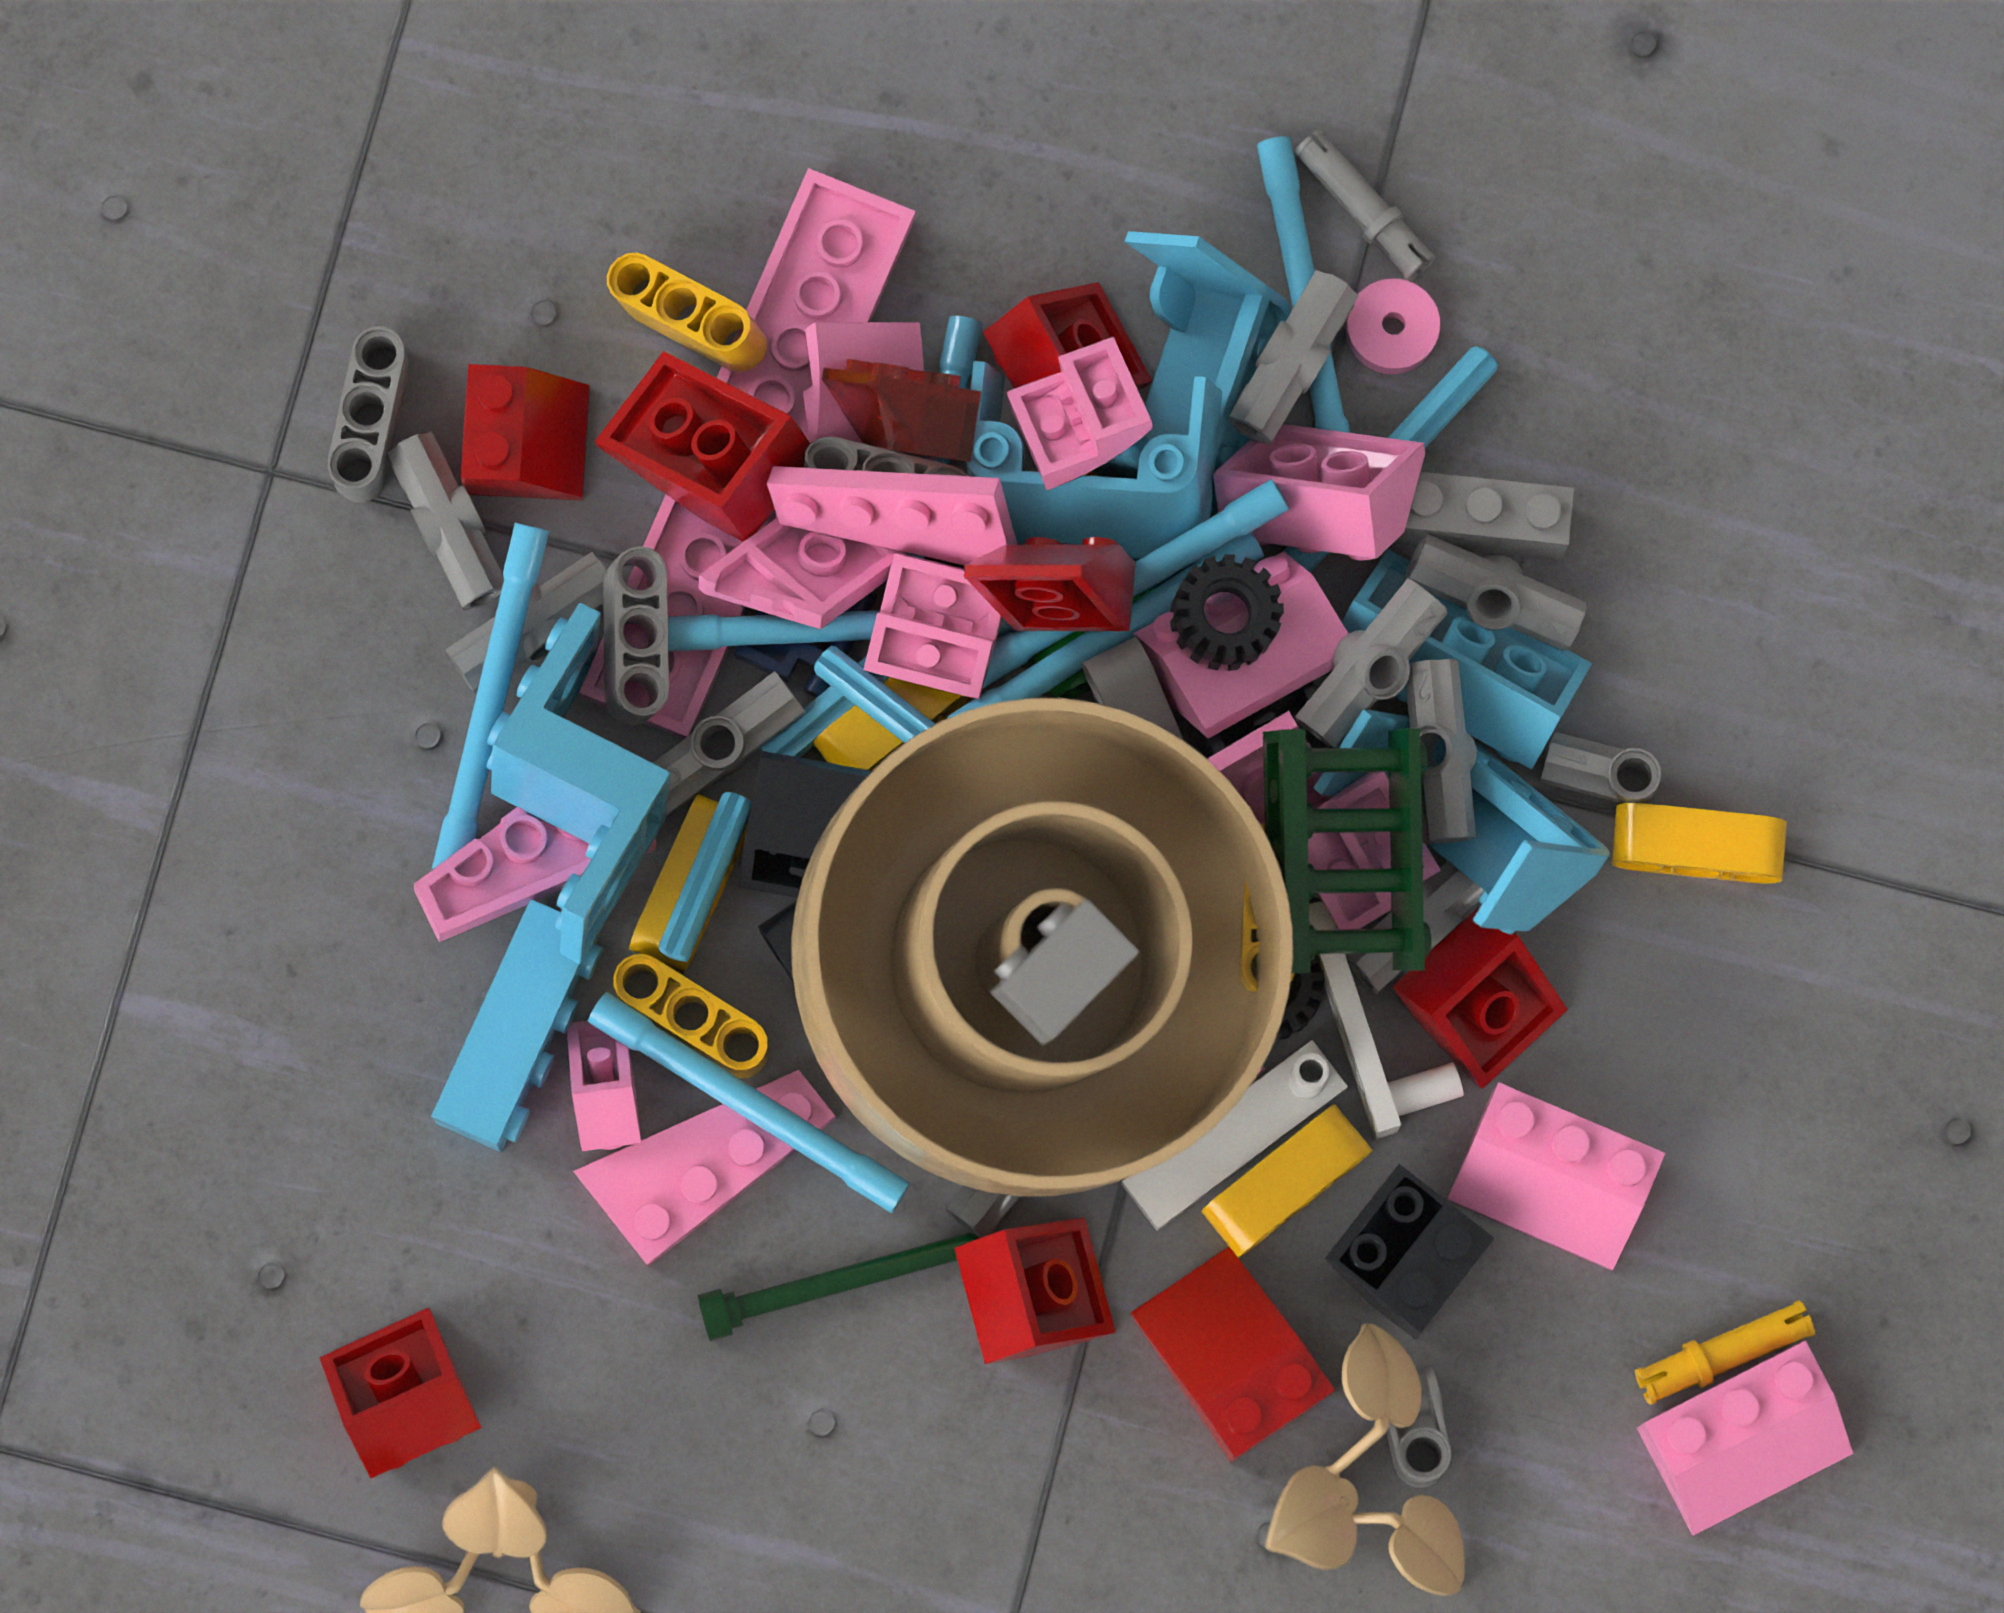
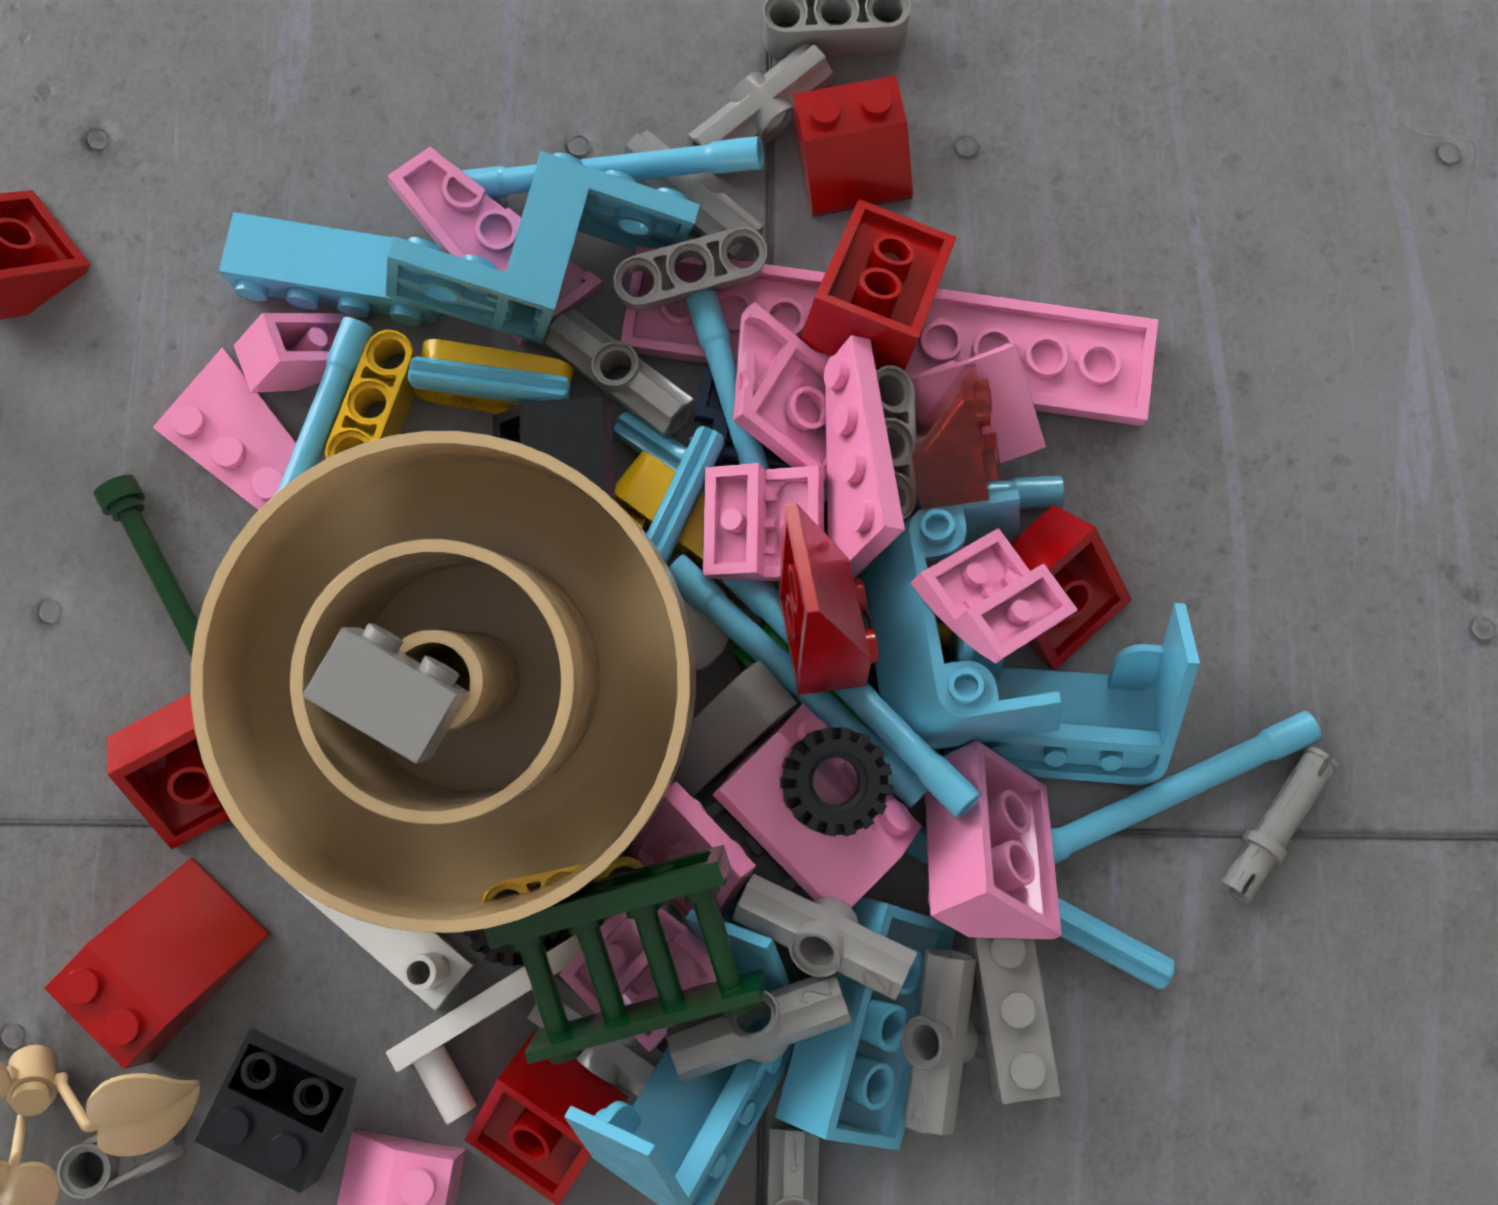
camera: 80 degrees right, 0 degrees up
(704, 329) = (995, 246): yellow beam -> none
(1286, 1180) = (333, 974): yellow beam -> none
(1292, 357) = (1112, 789): light grey piece -> none
(1386, 351) = (1196, 876): bright pink piece -> none

